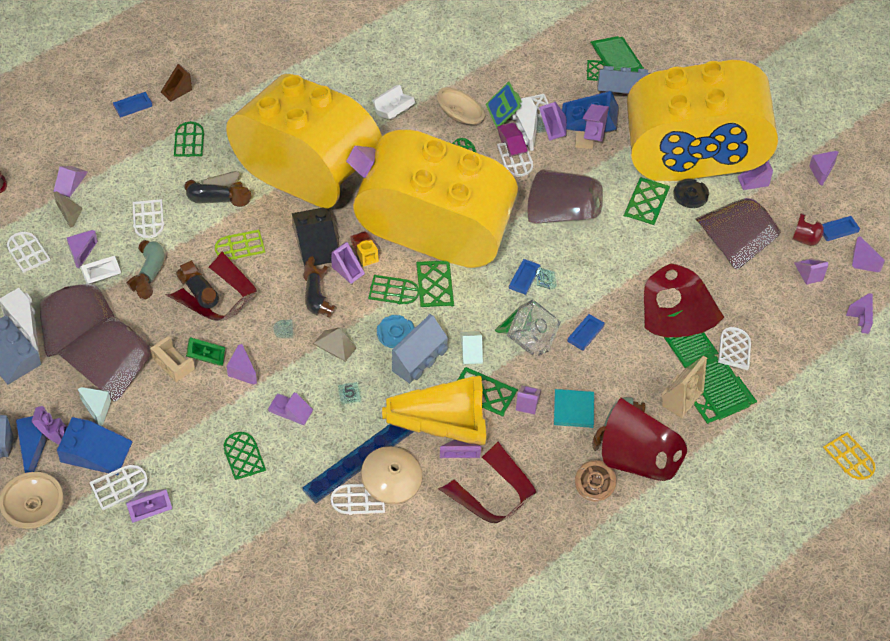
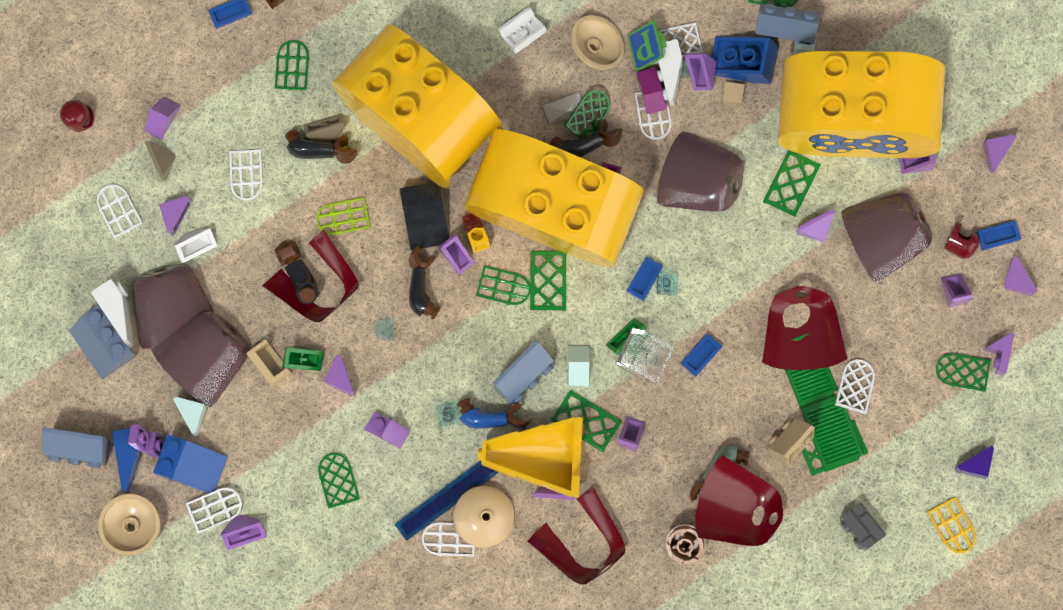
camera: 10 degrees right, 25 degrees up
(154, 256) = (252, 233): piece -> none
(336, 343) = (437, 353): slope -> none
(362, 159) = (476, 158): medium lavender slope -> none
(378, 392) = (479, 419): none -> blue piece
(389, 332) = (507, 341): dark azure tile -> none
(574, 408) = (676, 449): teal tile -> none
(596, 121) = (746, 80): medium lavender slope -> none
(675, 228) = (817, 227): none -> slope
(691, 193) = (842, 176): black tile -> none
(764, 460) = (862, 527): none -> dark grey brick
(837, 322) = (986, 375): none -> green window
(862, 402) = (978, 465): none -> dark purple slope

